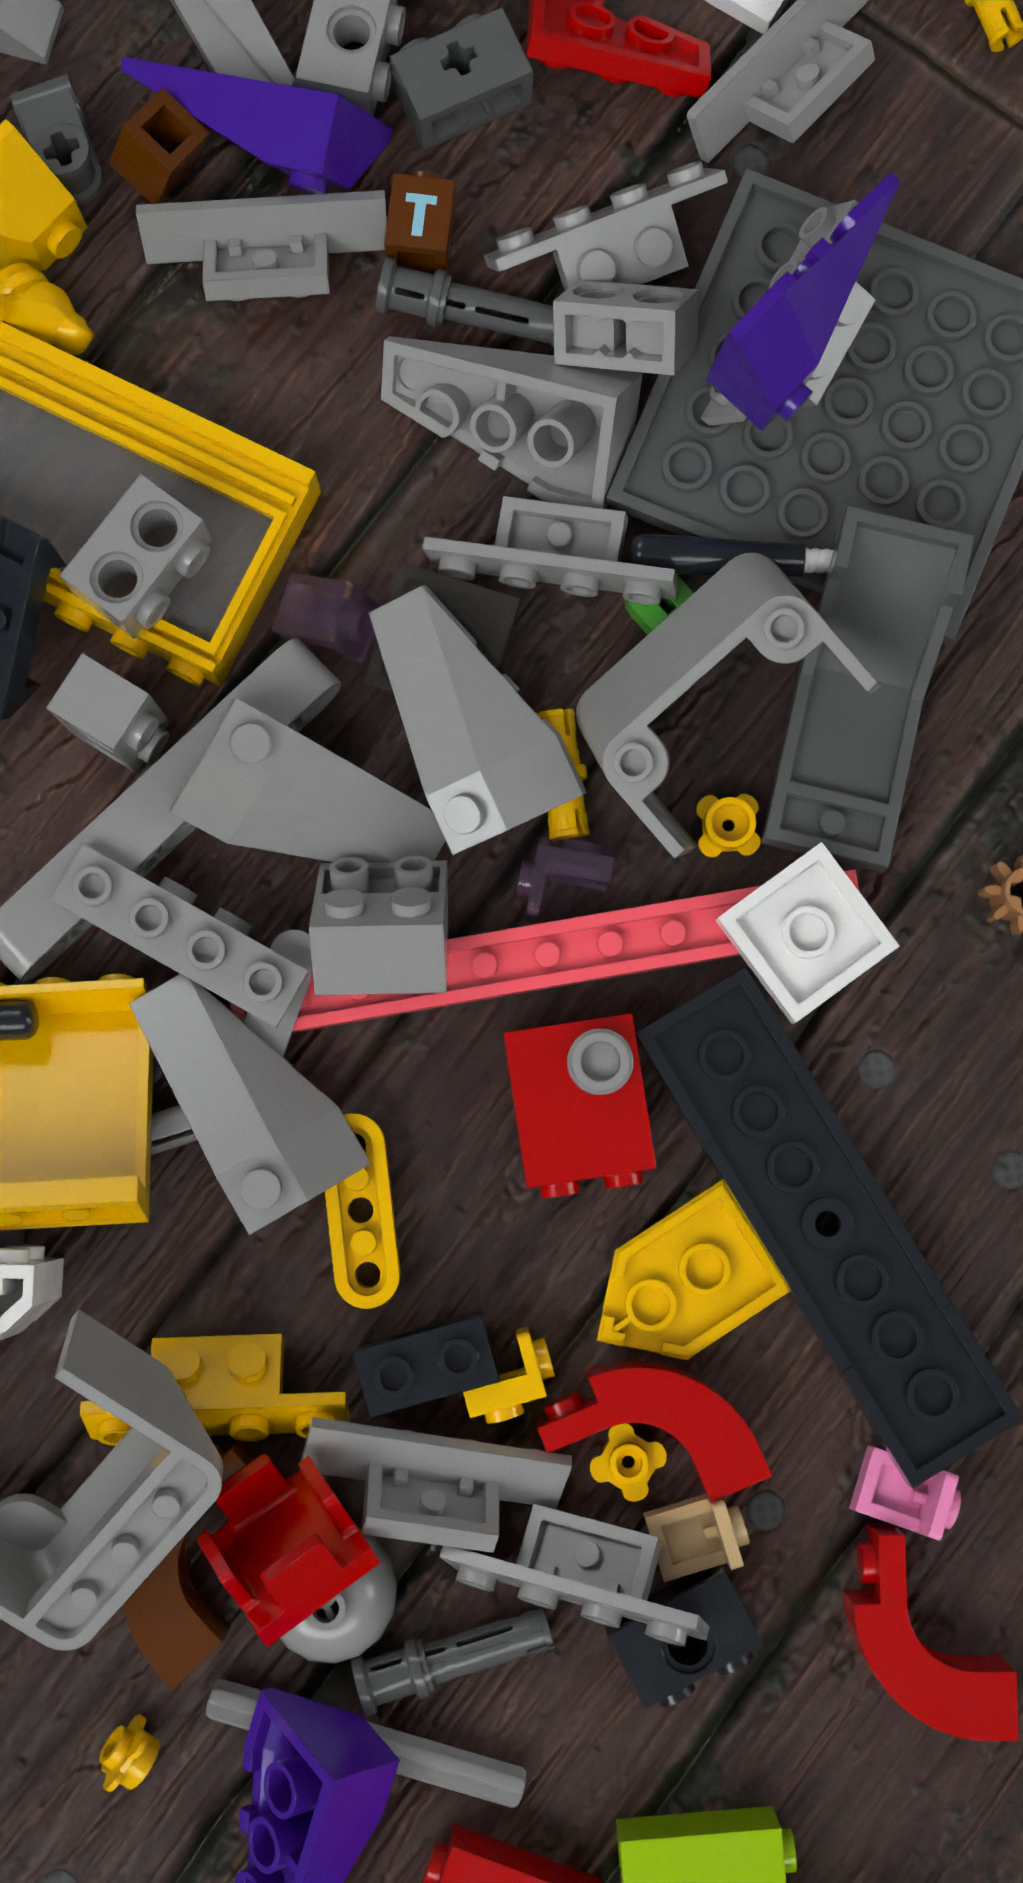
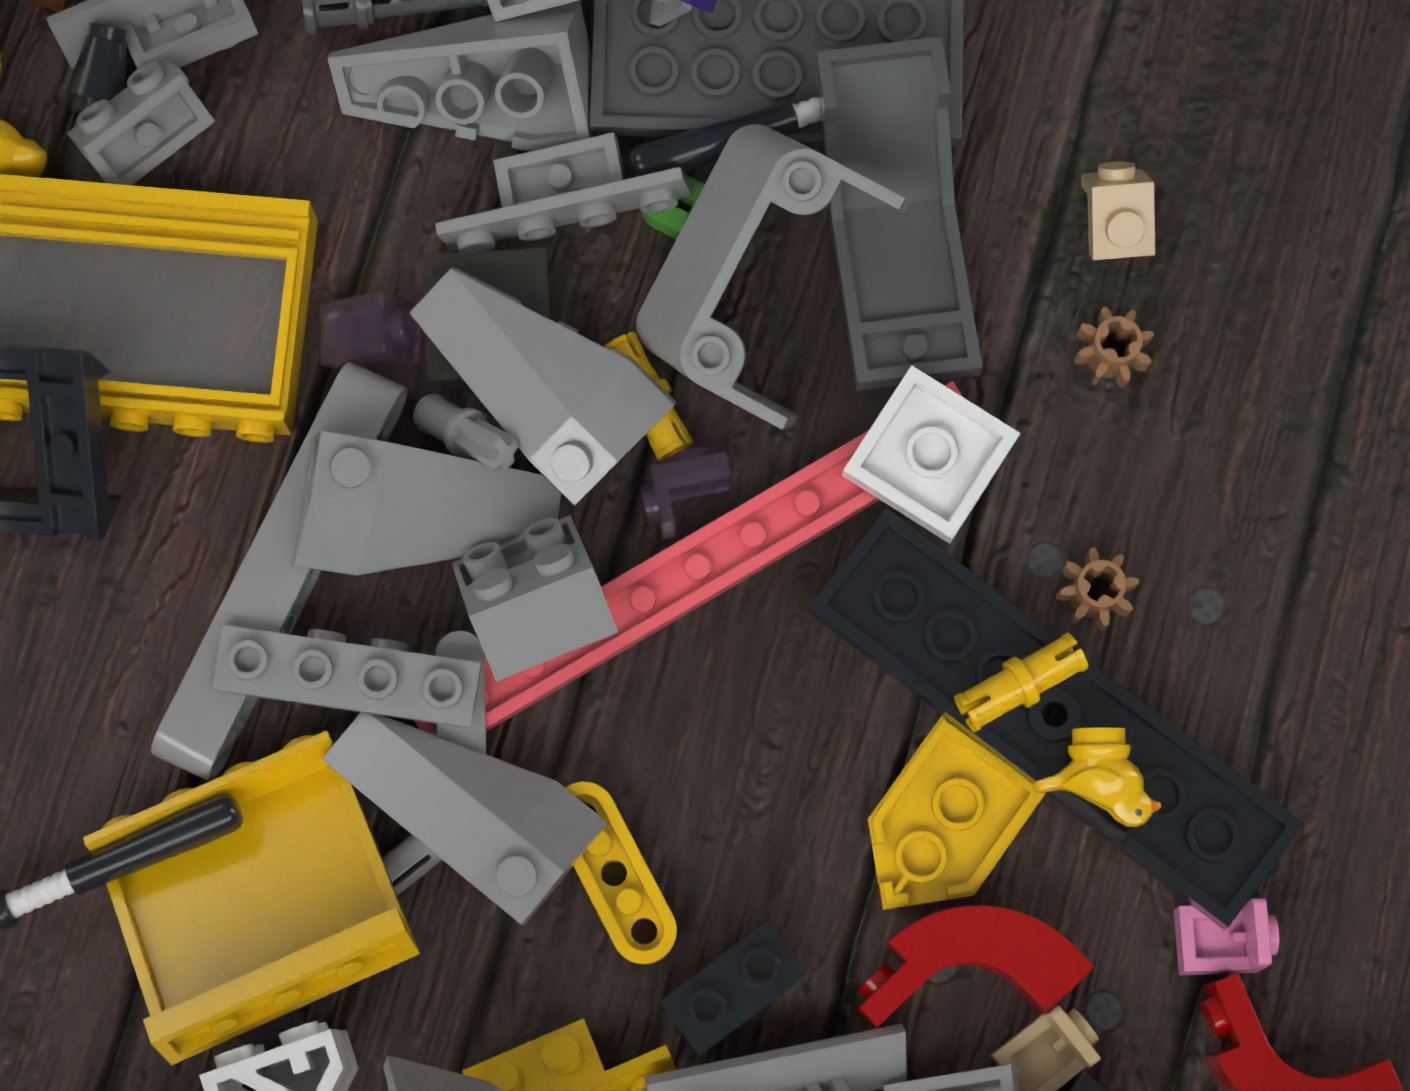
camera: 20 degrees left, 5 degrees down
(110, 714) = (203, 496): light grey brick -> none
(122, 549) = (158, 337): light grey brick -> none
(169, 276) = (101, 66): none -> black cone
(186, 339) = (140, 124): none -> light grey bracket
(378, 745) = (465, 431): none -> light grey axle
(505, 1398) = (816, 993): yellow bracket -> none
(566, 1130) = (781, 694): red brick -> none
(600, 1062) = (785, 643): light grey tile -> none
(630, 1480) = (942, 1024): yellow plate -> none
(740, 812) = (825, 369): yellow plate -> none
(808, 1183) = (1021, 682): none -> yellow pin
(851, 1304) = (1103, 776): none -> yellow animal
(932, 1123) = (1113, 593): none -> medium nougat gear

